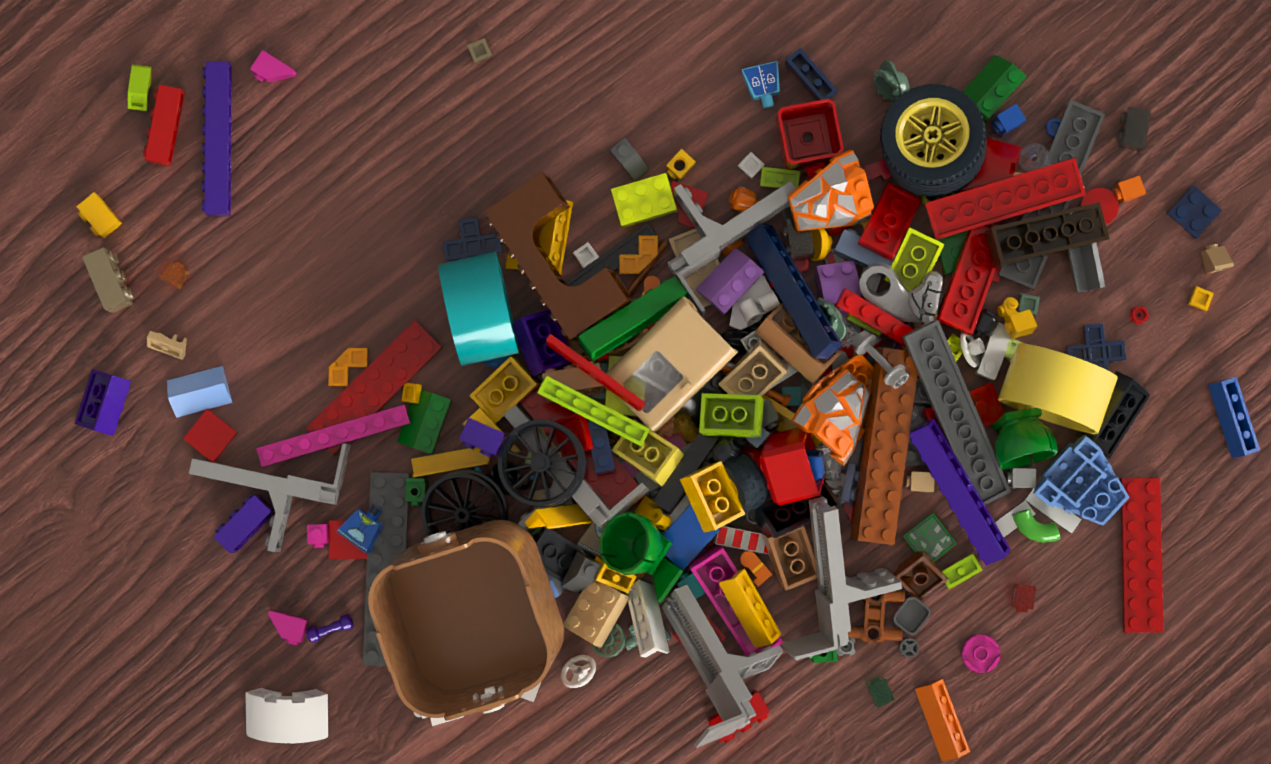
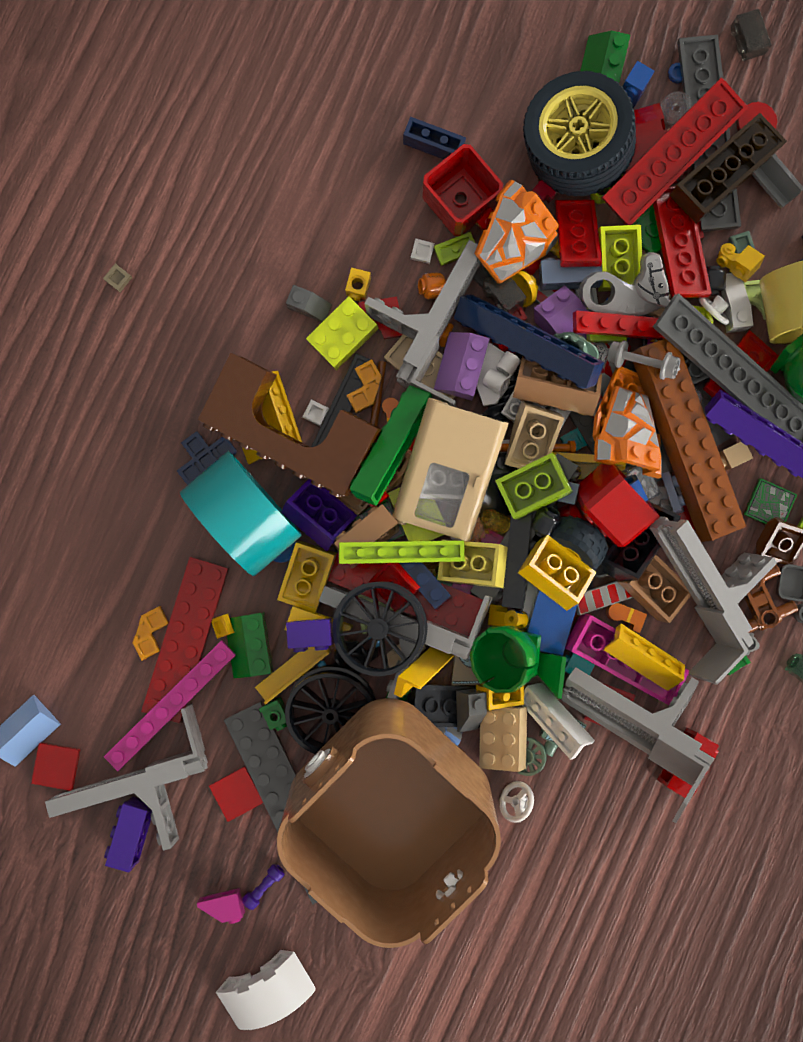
camera: 30 degrees left, 0 degrees up
(318, 535) = (205, 806): dark pink brick -> none
(362, 528) = (243, 778): blue torso -> none
(595, 373) = (384, 515): red tile -> none
(762, 82) = (392, 169): torso -> none
(890, 82) = (508, 107): sand green hair -> none
(1129, 189) = (777, 90): orange brick -> none

